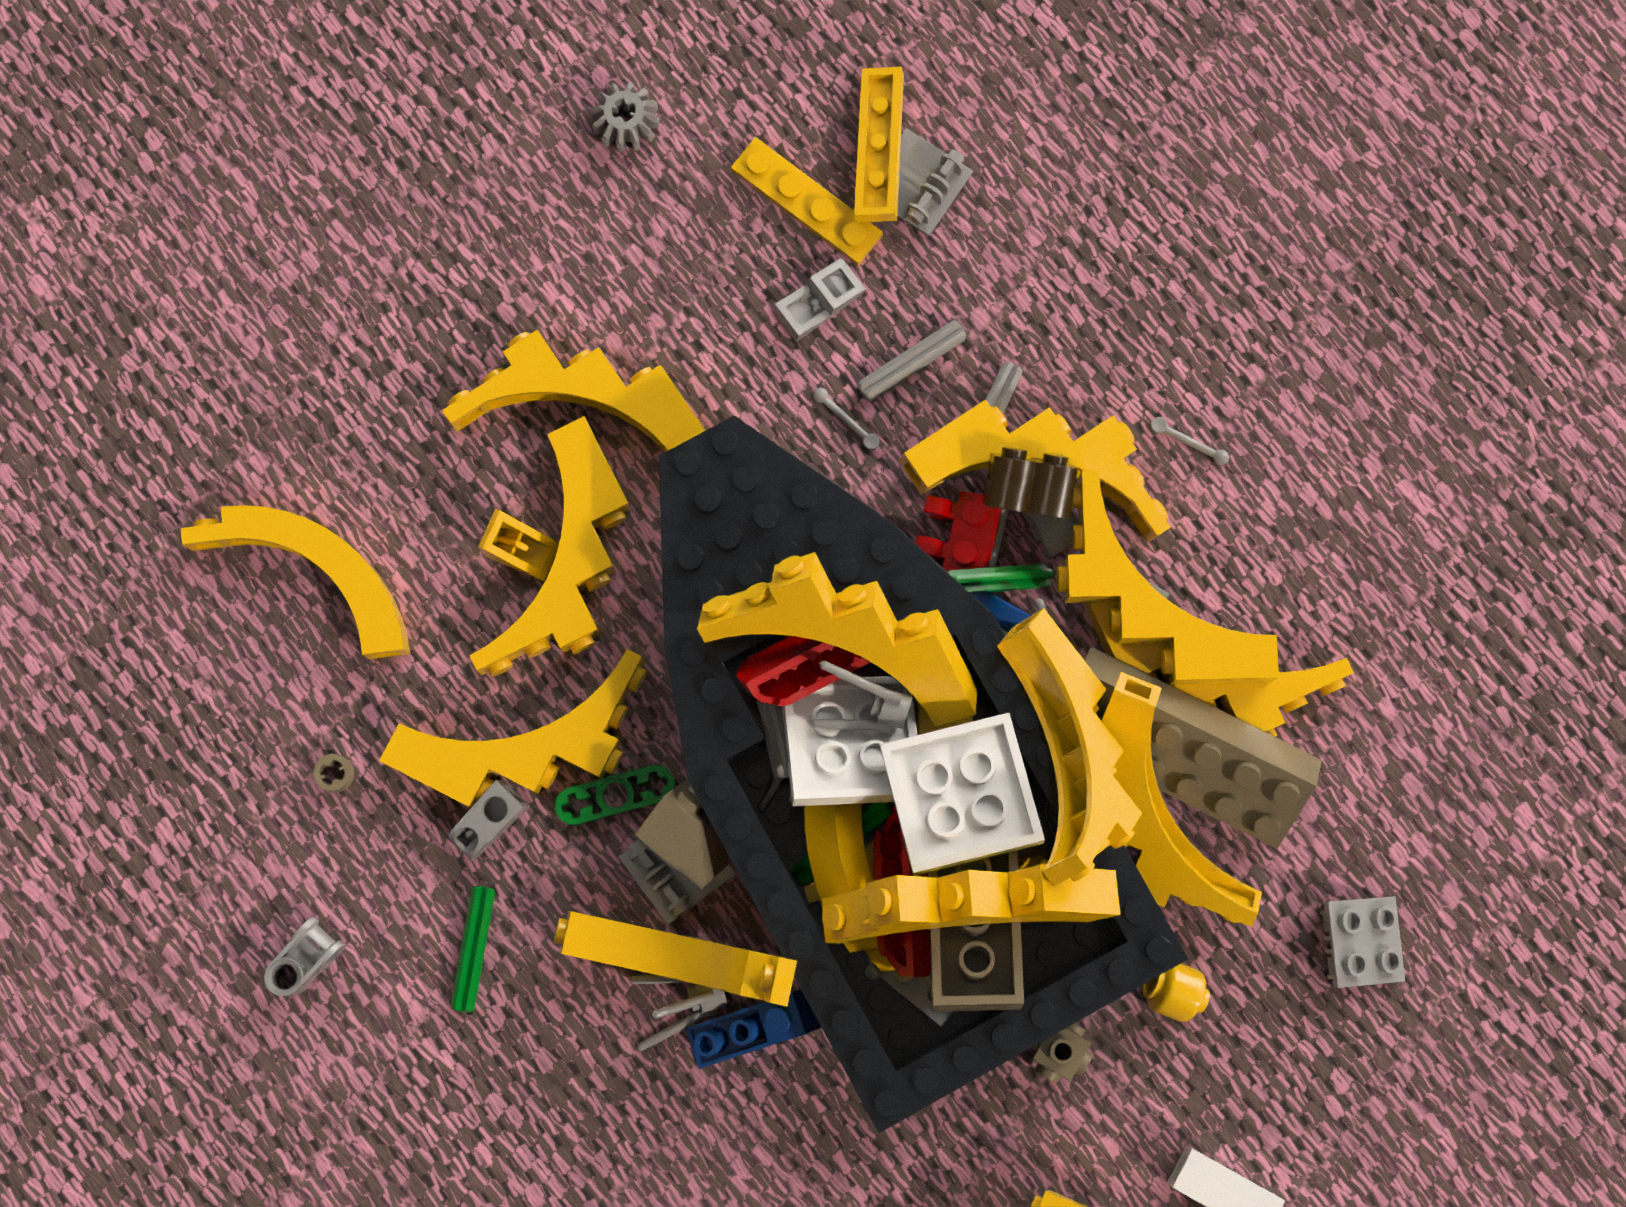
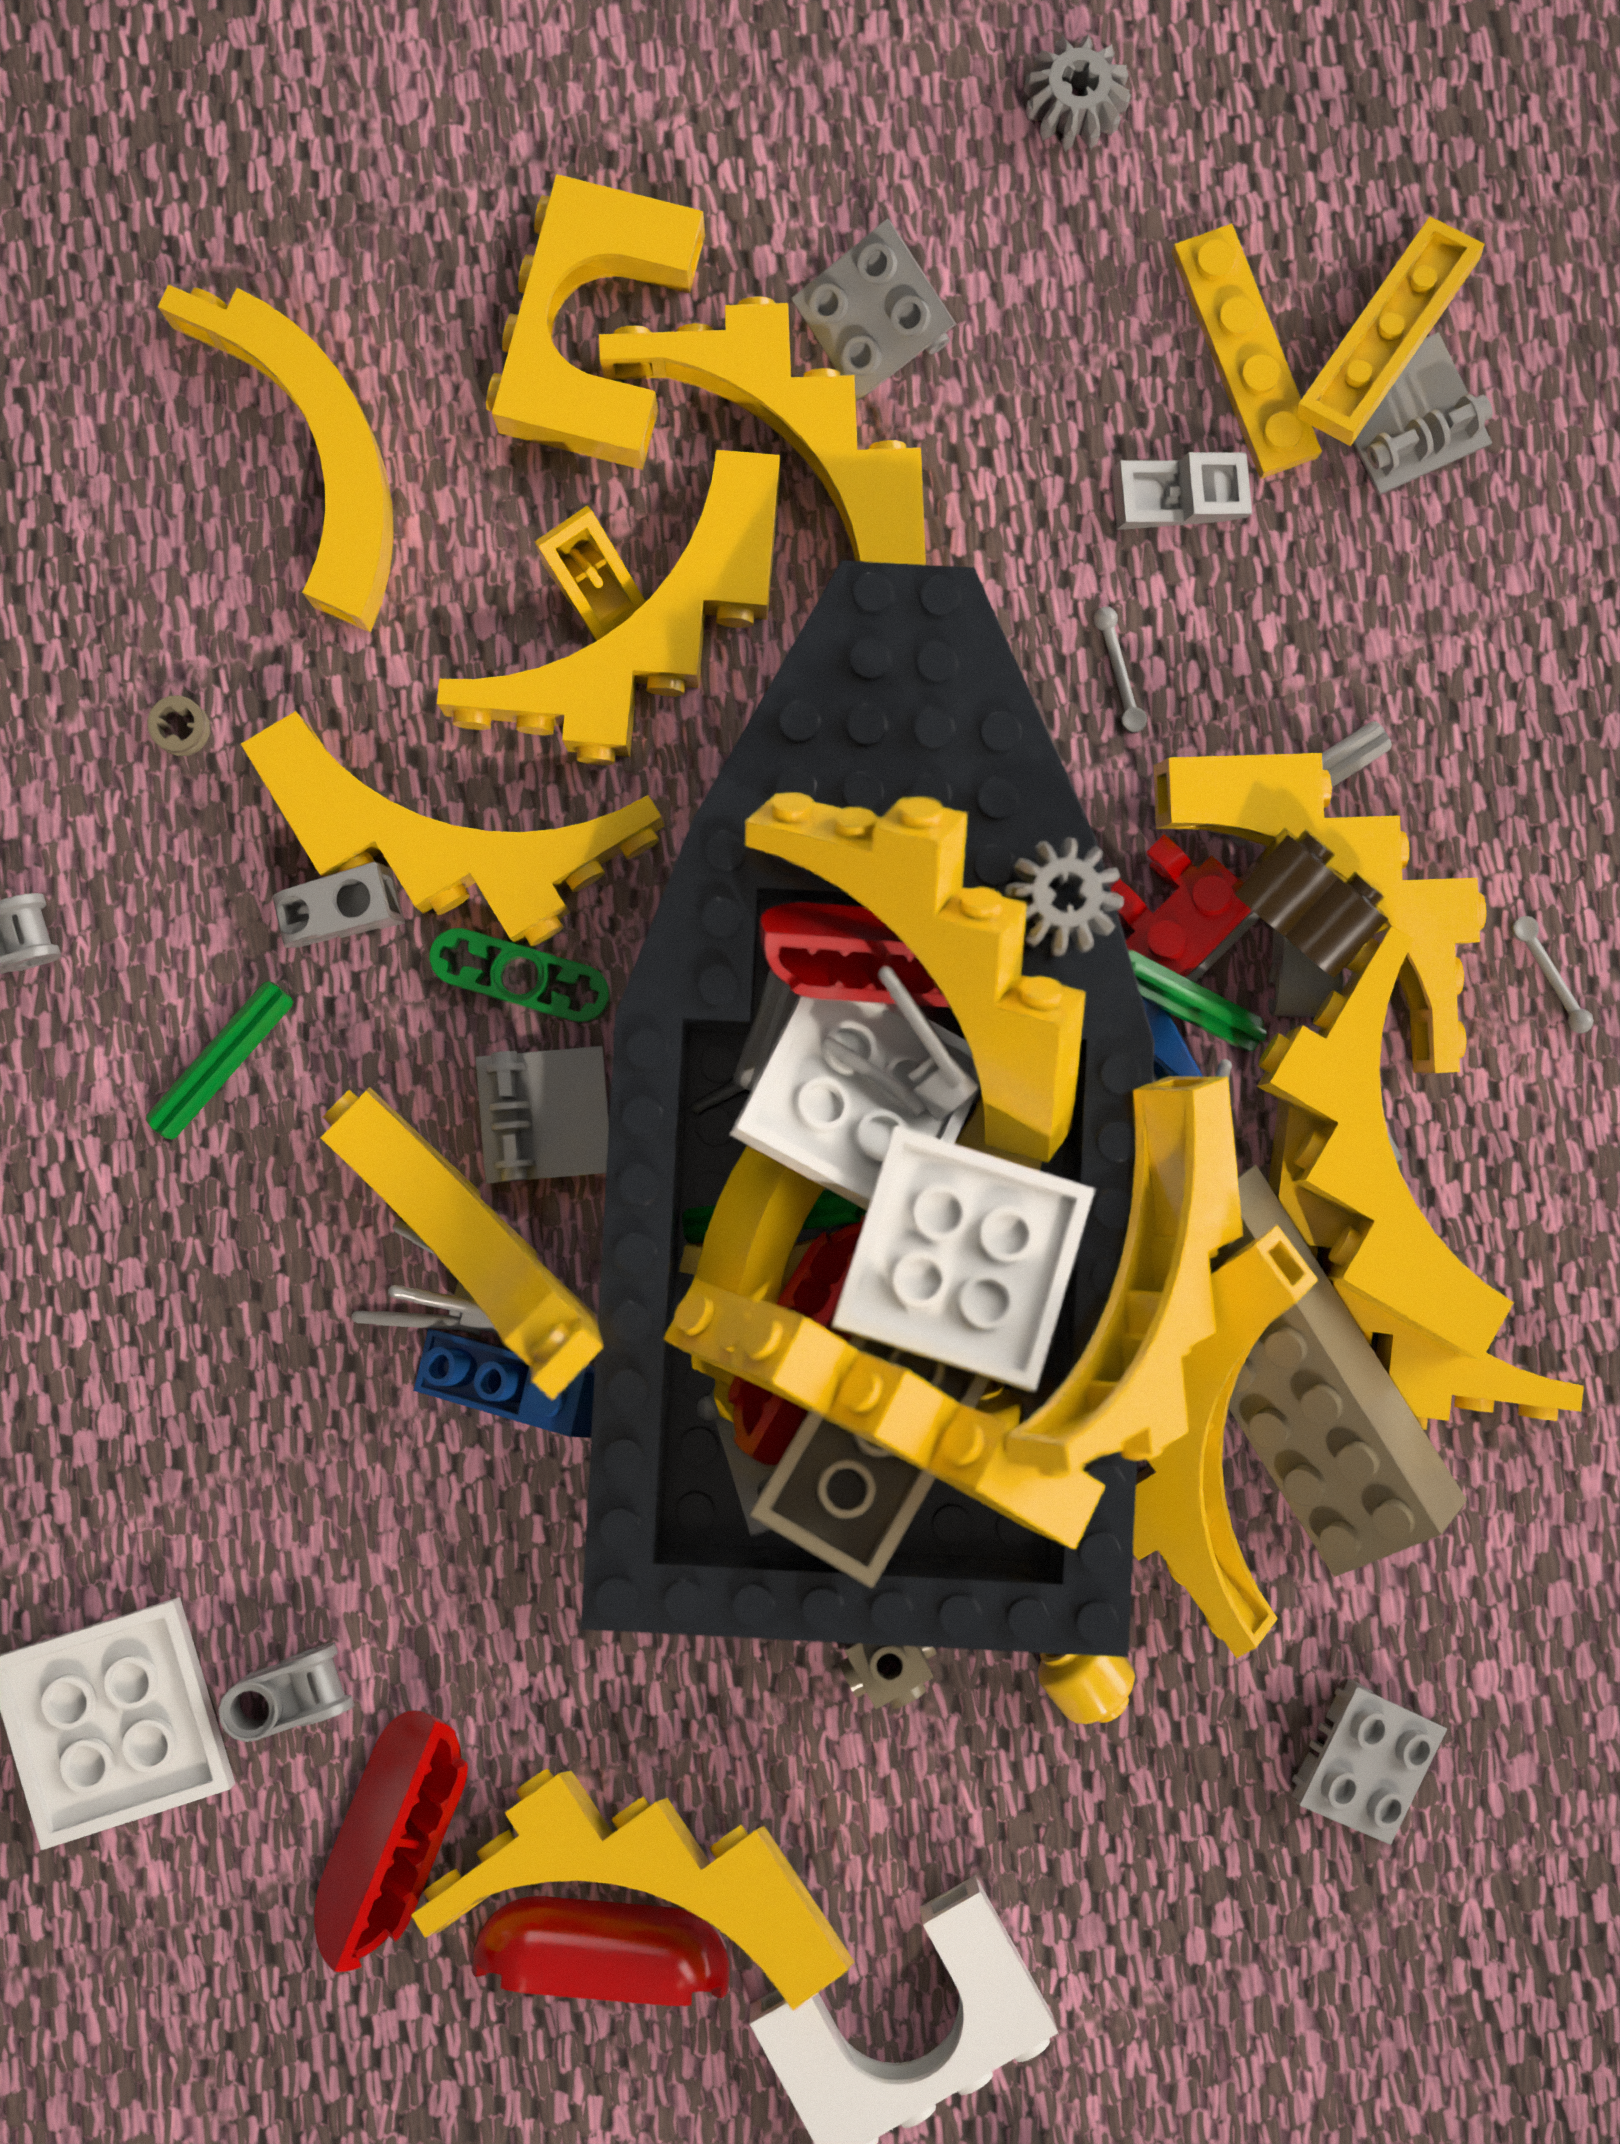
camera: 25 degrees right, 5 degrees up
(398, 360) = (585, 237): none -> yellow arch
(586, 303) = (874, 310): none -> light grey hinge
(684, 836) = (567, 1085): dark tan slope -> none
(907, 556) = (1088, 896): none -> light grey gear
(911, 360) = (1254, 645): light grey axle -> none

